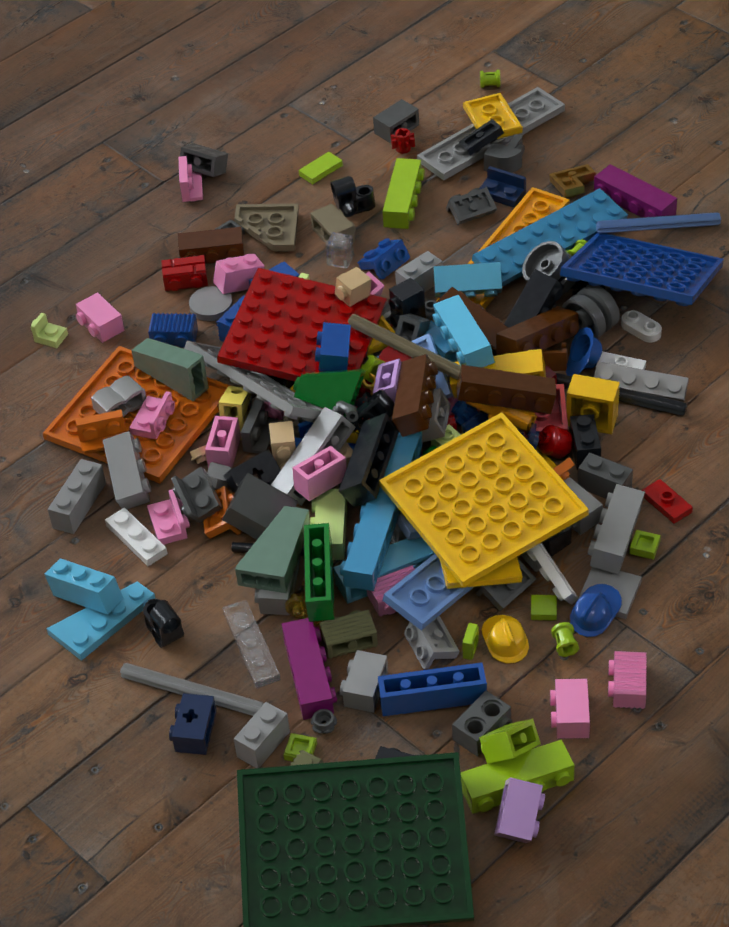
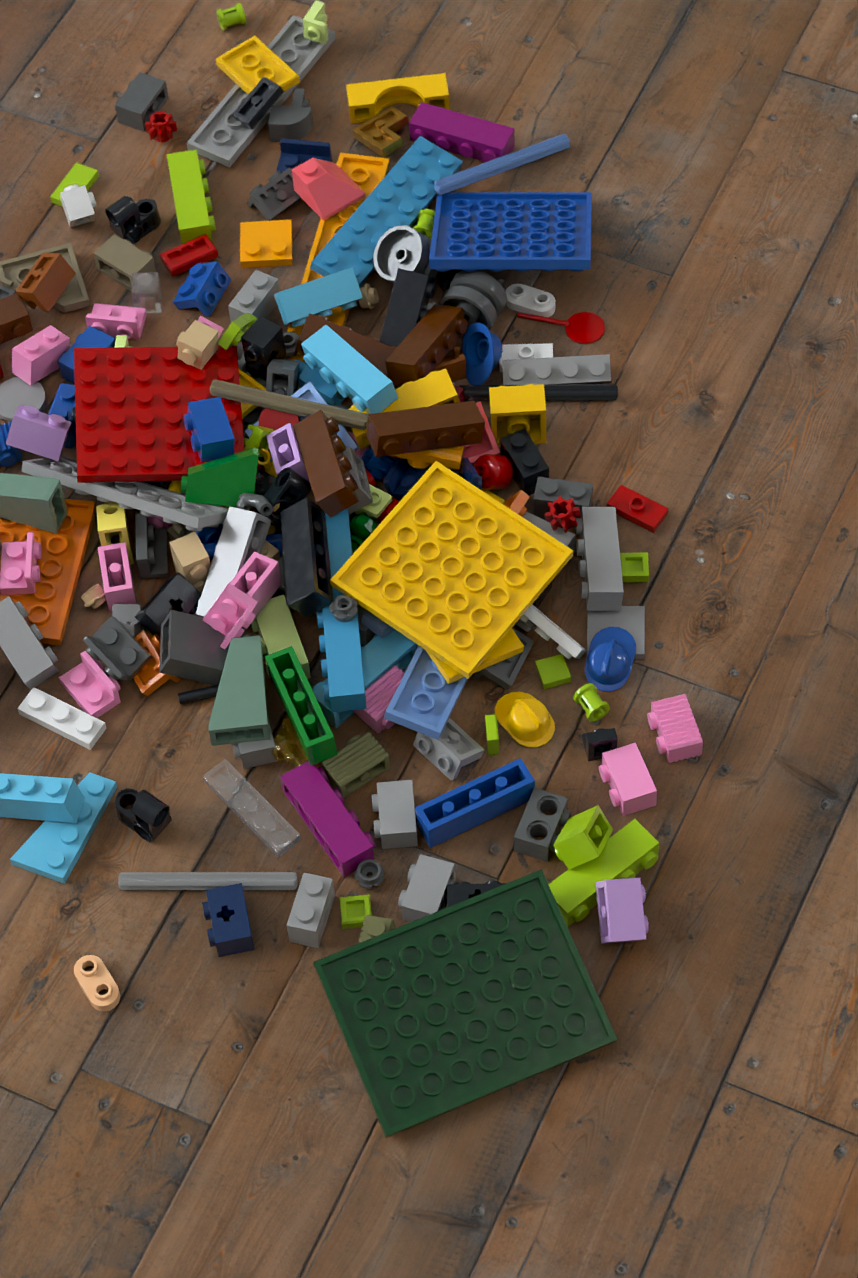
camera: 20 degrees left, 10 degrees up
(69, 740) = (95, 981): none -> light nougat plate
(207, 323) = (38, 432): none -> lavender brick
(265, 223) = (46, 281): none -> dark orange hinge
(292, 485) = (231, 613): none -> bright pink bracket
(307, 263) = (117, 320): none -> bright pink bracket
(315, 179) = (78, 205): none -> white brick
(365, 741) = (426, 888): none -> light grey brick
(377, 232) = (188, 254): none -> red plate
(382, 286) = (236, 329): none -> lime plate
(382, 506) = (344, 614): none -> dark grey plate
(448, 238) = (266, 244): none -> light orange plate
(508, 206) = (325, 187): none -> coral slope
(510, 292) = (370, 297): none -> tan plate
(550, 93) = (315, 23): none -> yellowish green bracket
(557, 669) = (598, 742): none -> black bracket
(575, 154) = (370, 98): none -> yellow arch
(597, 484) = (562, 514): none -> red gear
(674, 356) = (580, 327): none -> red piece

